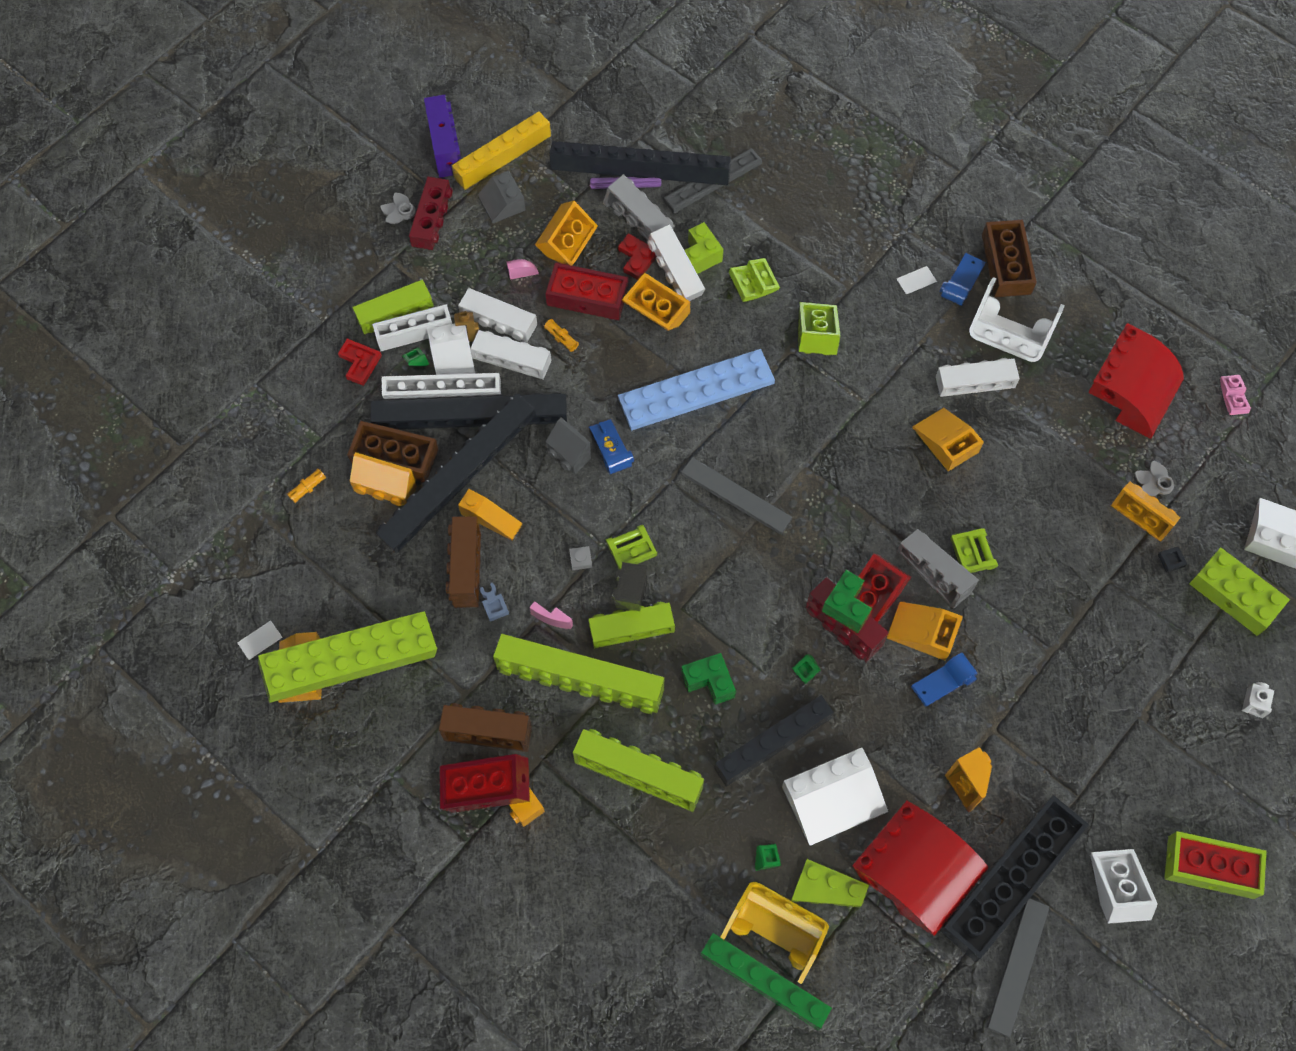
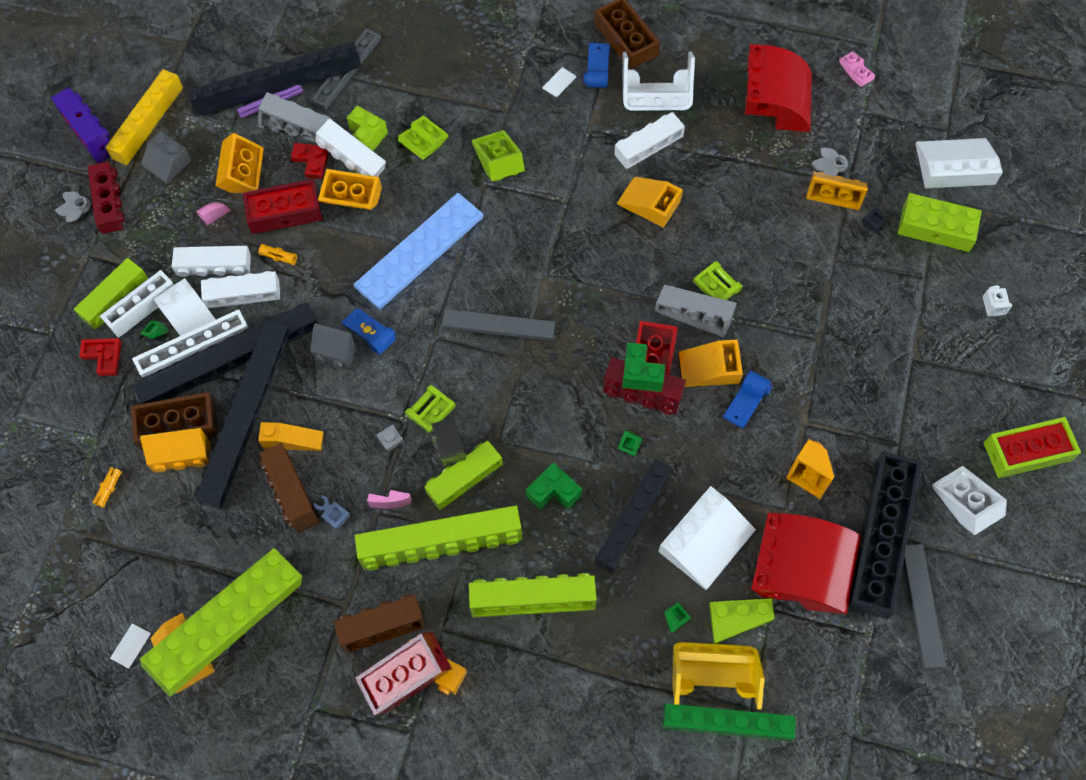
camera: 25 degrees left, 0 degrees up
(467, 318) = (186, 274): pearl gold bracket -> none

